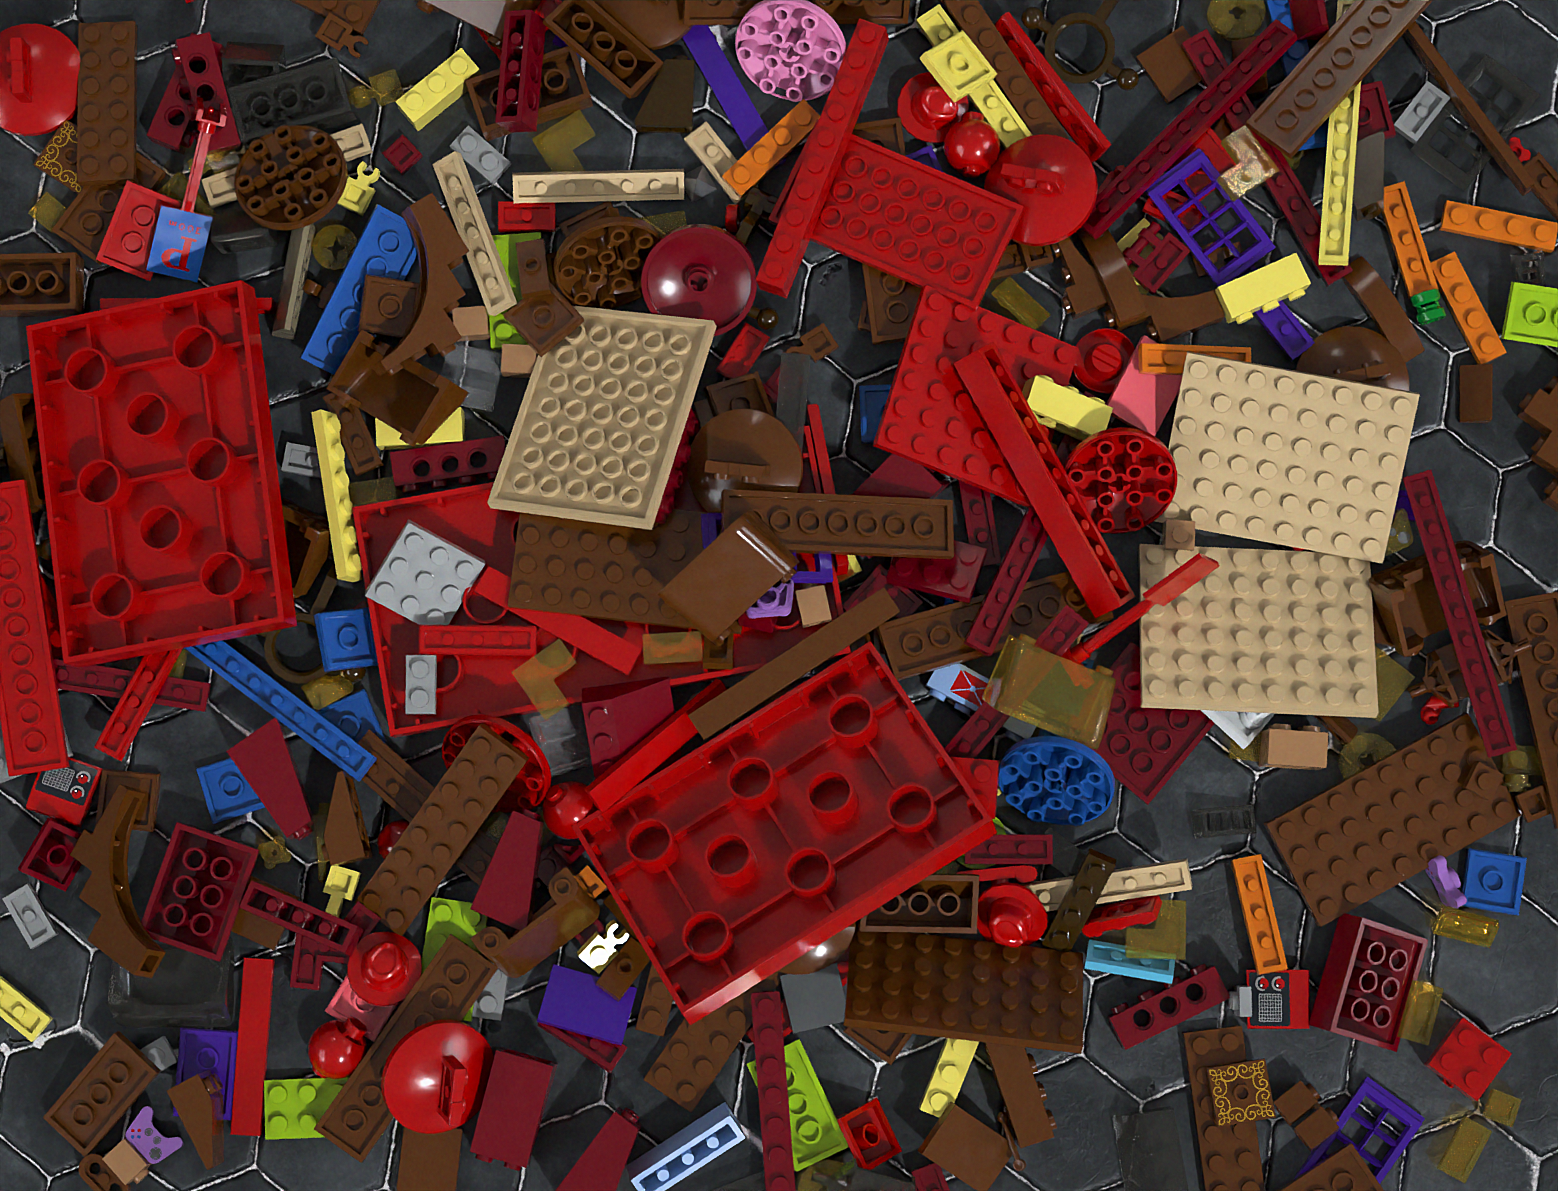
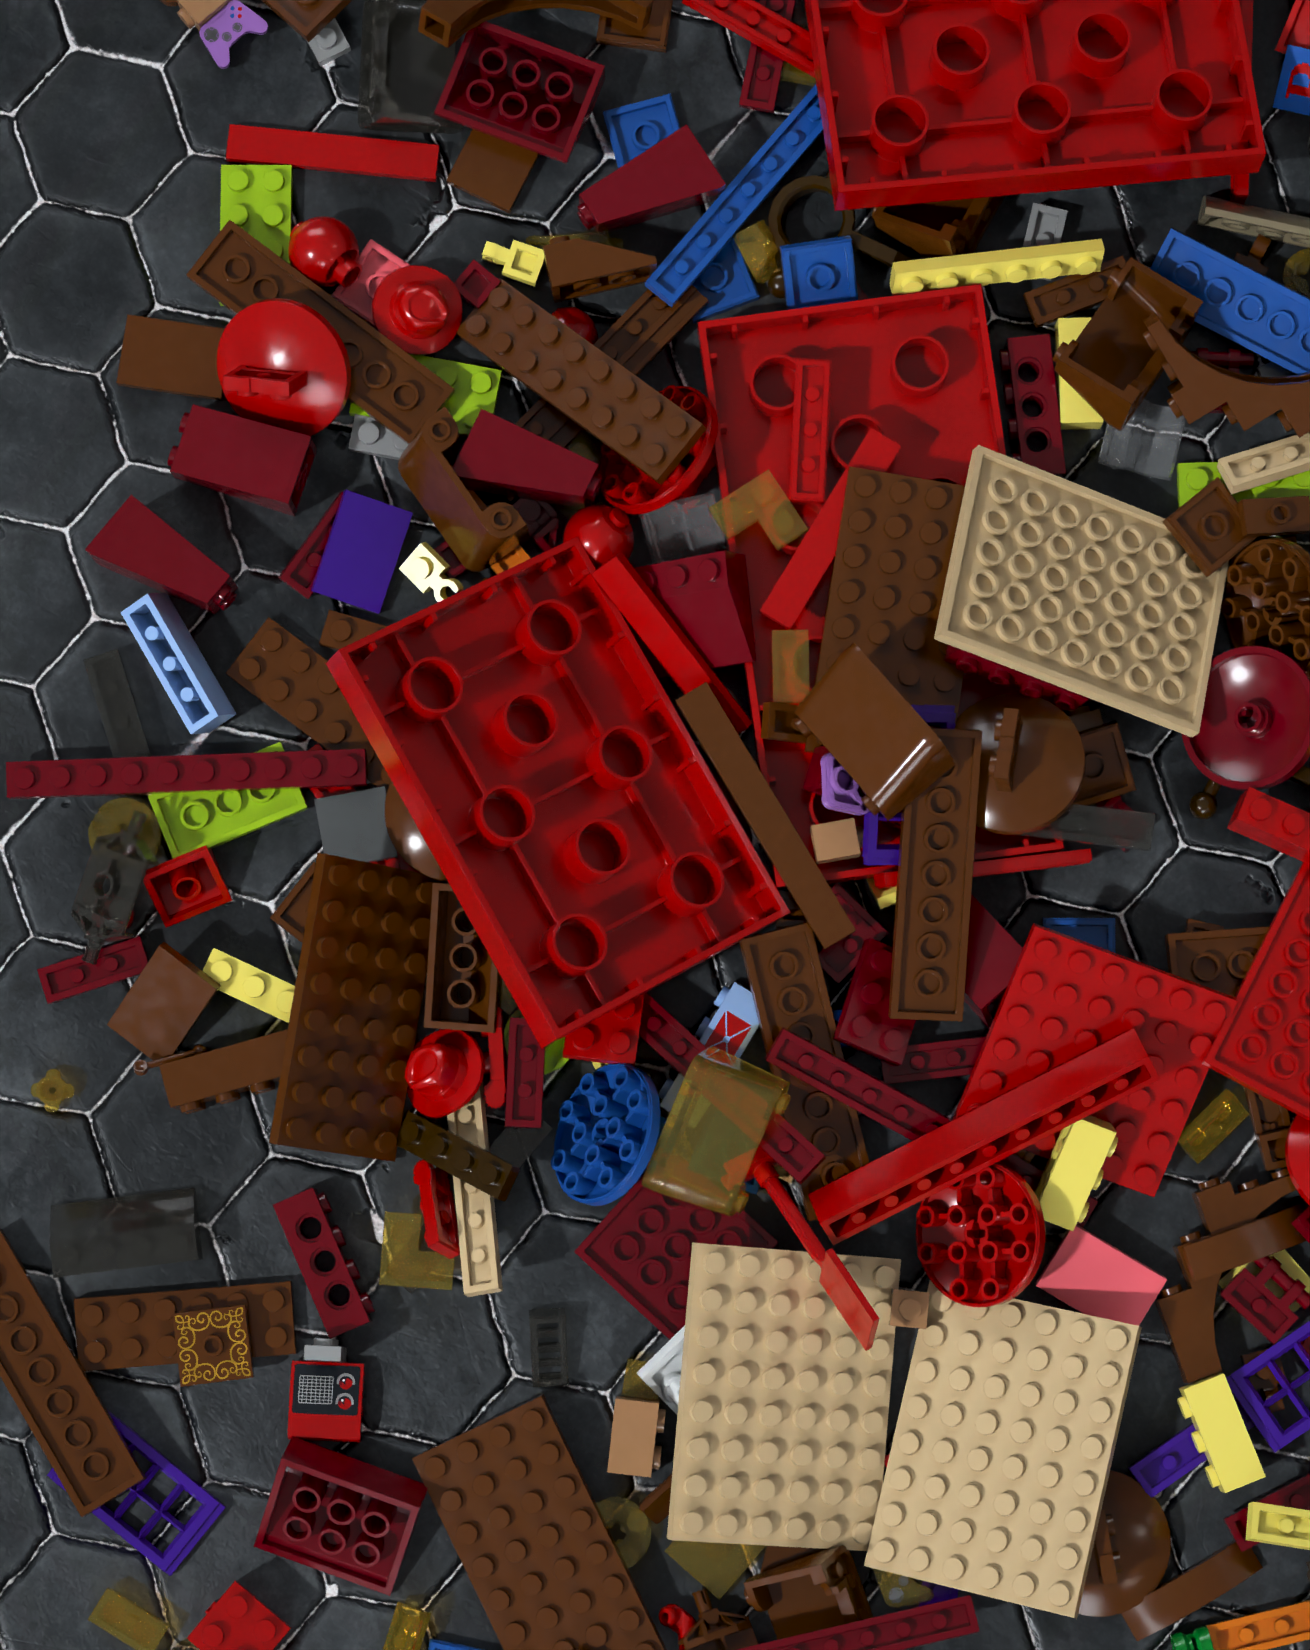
camera: 90 degrees right, 0 degrees up
(201, 1111) = (254, 88): reddish brown slope -> none
(211, 1051) = (303, 96): dark purple tile -> none
(266, 852) = (566, 174): clear yellow plate -> none
(301, 918) = (481, 210): dark red brick -> none
(309, 962) = (442, 225): dark red plate -> none
(372, 491) = (1000, 311): clear yellow plate -> none
(387, 306) = (1233, 336): reddish brown plate -> none
(421, 684) = (758, 360): light grey plate -> none
(424, 576) = (891, 368): light grey plate -> none
(471, 323) = (1209, 438): medium nougat brick -> none
(517, 360) = (1160, 493): medium nougat brick -> none
(623, 970) = (397, 593): reddish brown plate -> none
(743, 352) = (1161, 774): red plate -> none
(816, 343) = (1169, 866): reddish brown plate -> none
(1102, 359) = (1138, 1225): red hat -> none
(1111, 959) = (384, 1195): medium azure plate -> none
(1170, 358) = (1135, 1307): orange plate -> none
(1259, 914) = (430, 1382): orange plate -> none
(1297, 1103) = (166, 1437): reddish brown piece -> none
(1420, 1012) = (300, 1578): clear yellow plate -> none
(1446, 882) = (459, 1621): medium lavender piece -> none

